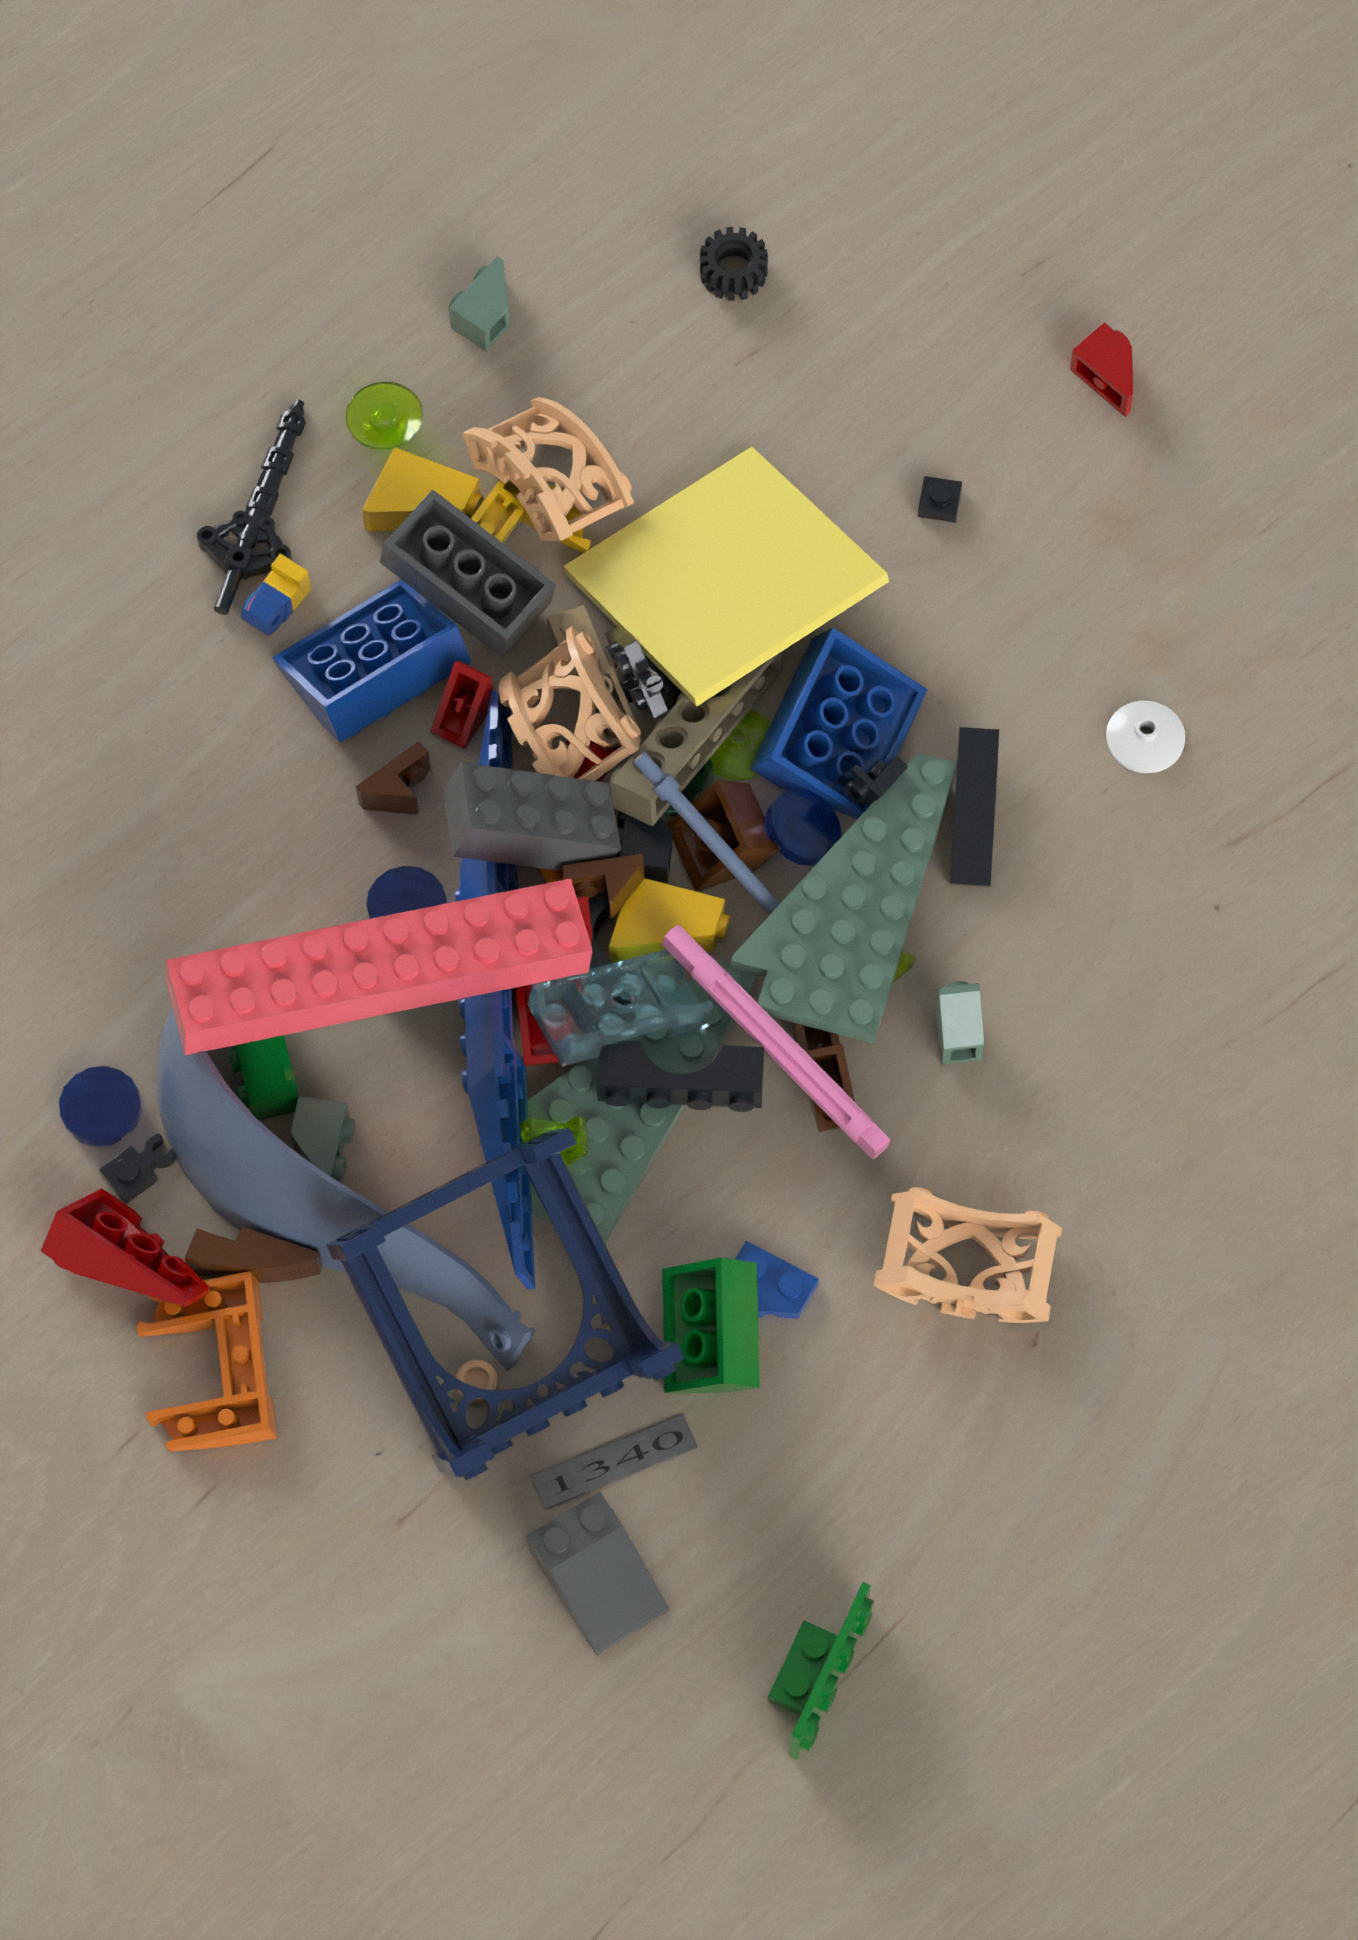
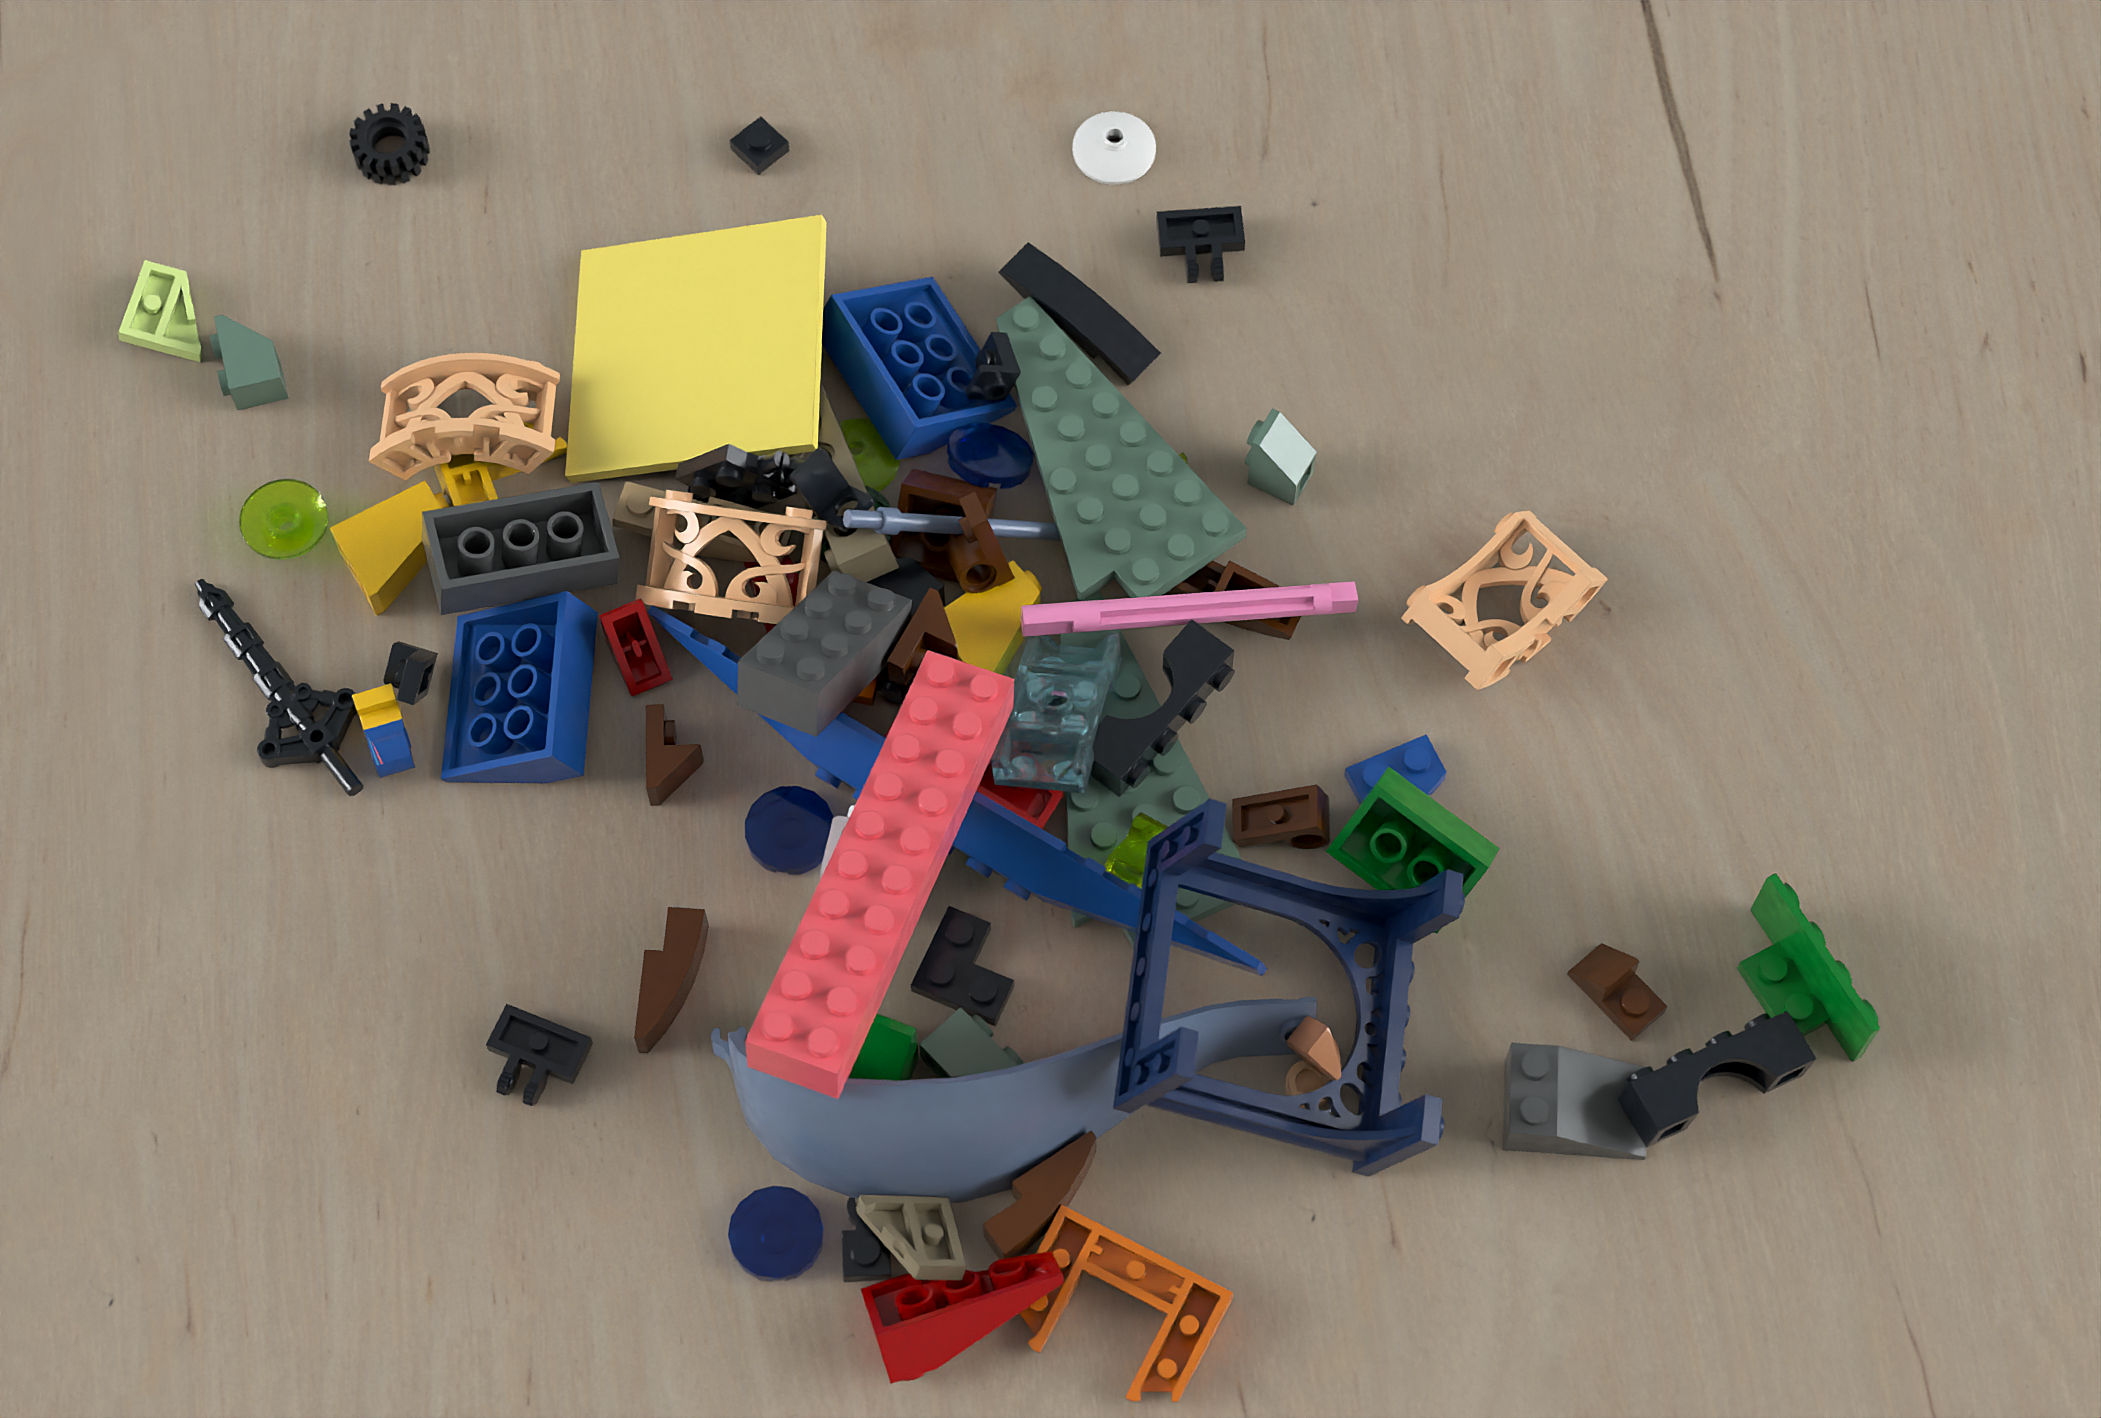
camera: 55 degrees left, 0 degrees up
(122, 861) = (539, 1045): none -> black hinge
(160, 1192) = (917, 1232): none -> dark tan wing
(233, 904) = (669, 974): none -> reddish brown slope
(330, 579) = (410, 671): none -> black bracket
(380, 1082) = (950, 970): none -> black plate
(482, 224) = (162, 313): none -> yellowish green wing
(495, 1362) = (1316, 1047): none -> nougat slope
(614, 1461) = (1469, 1021): flat silver sticker -> none
(661, 727) = (824, 487): none -> black bracket
(672, 1225) = (1291, 815): none -> reddish brown plate
(706, 868) = (976, 553): none -> reddish brown plate
(715, 1549) = (1617, 990): none -> reddish brown slope
(737, 1680) = (1763, 1054): none -> black arch
(1116, 843) = (1201, 232): none -> black hinge

